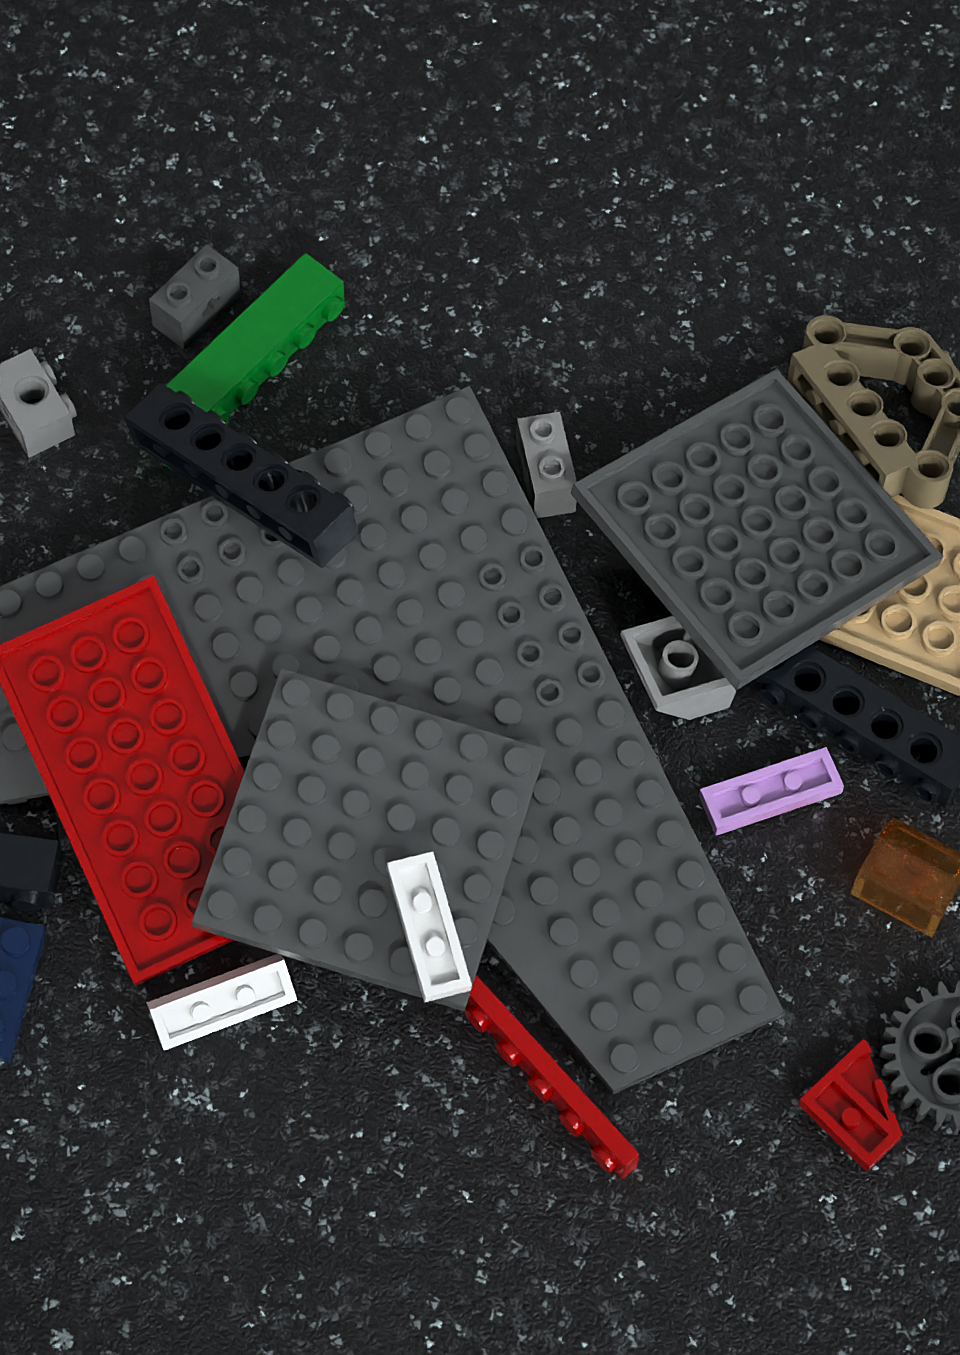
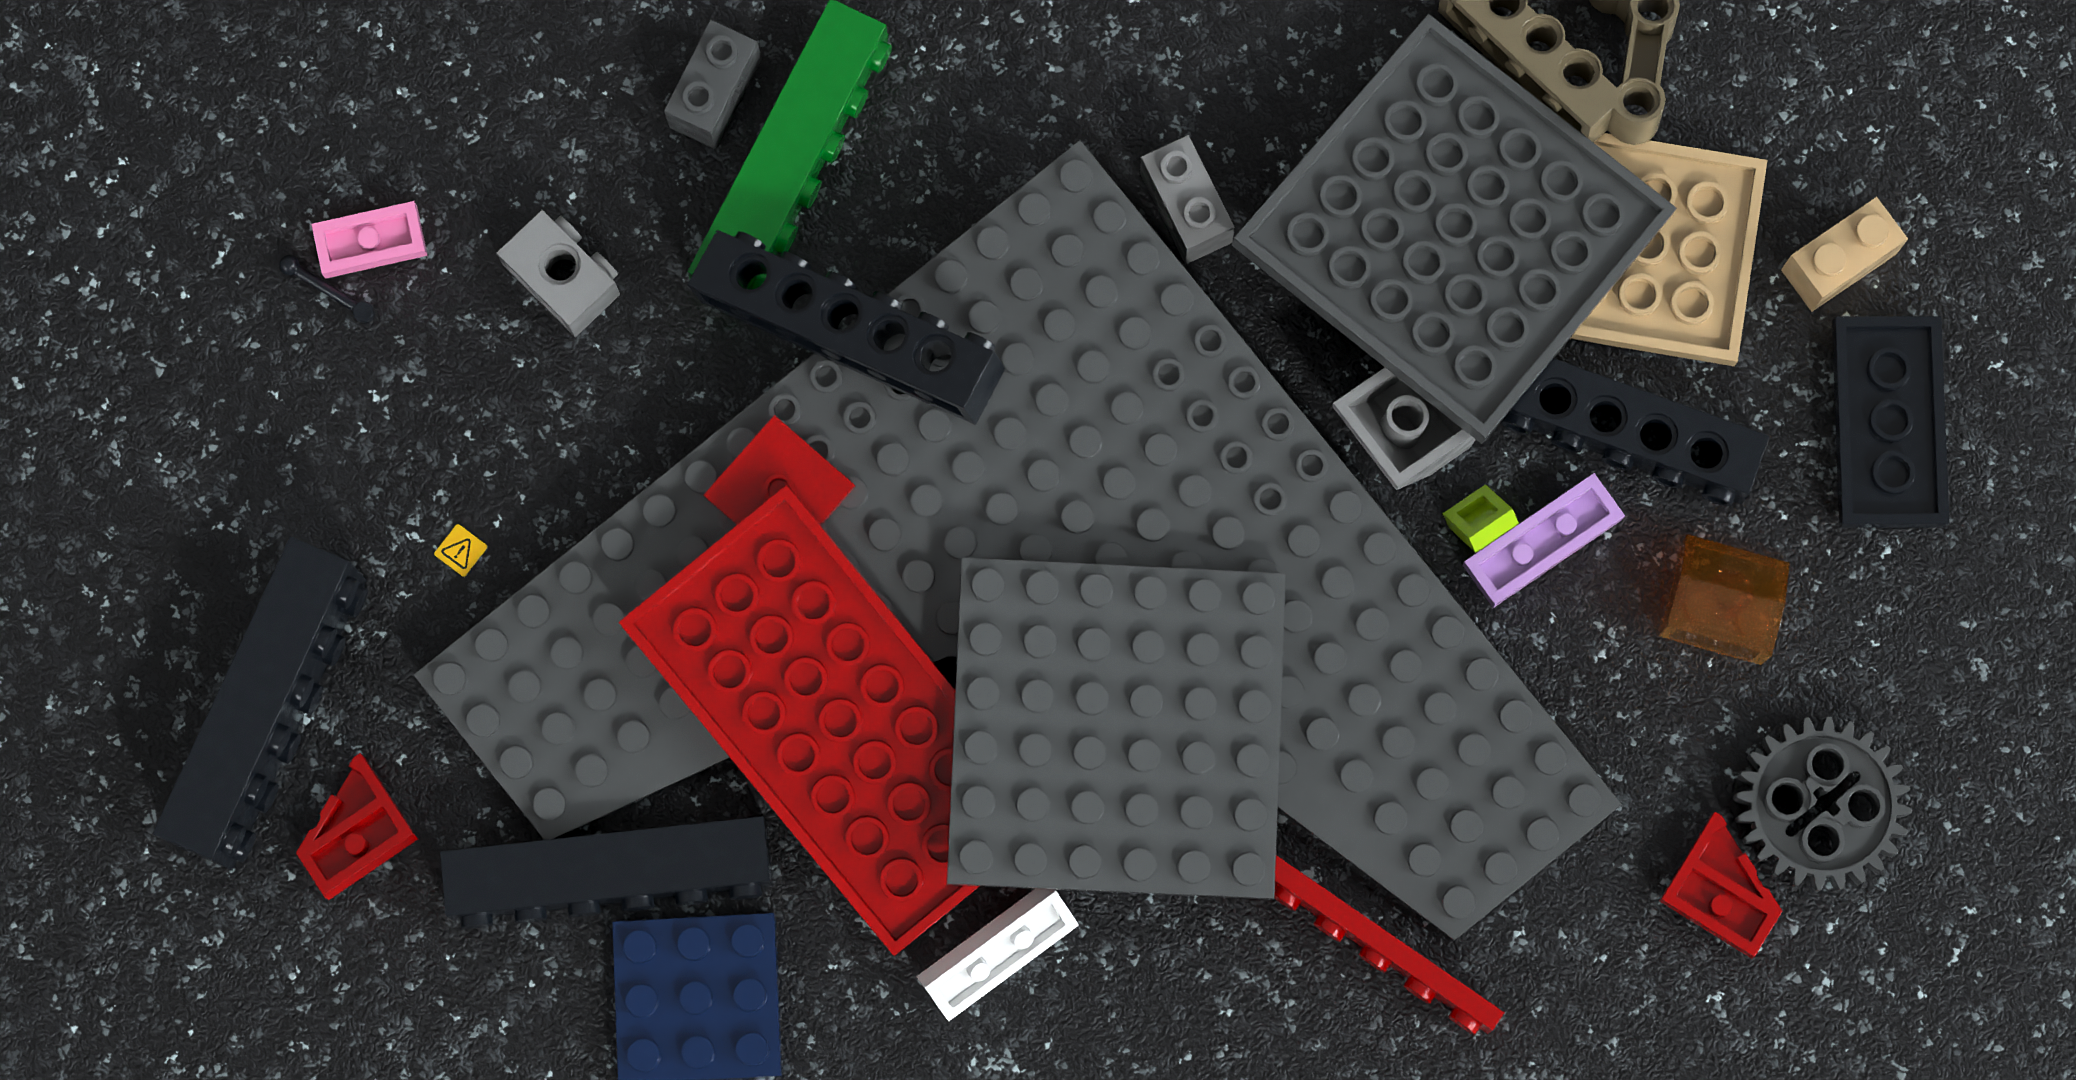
camera: 10 degrees left, 15 degrees up
(163, 560) = (771, 462): none -> red plate
(428, 926) = (1213, 825): white plate -> none
(722, 760) = (1480, 518): none -> lime plate

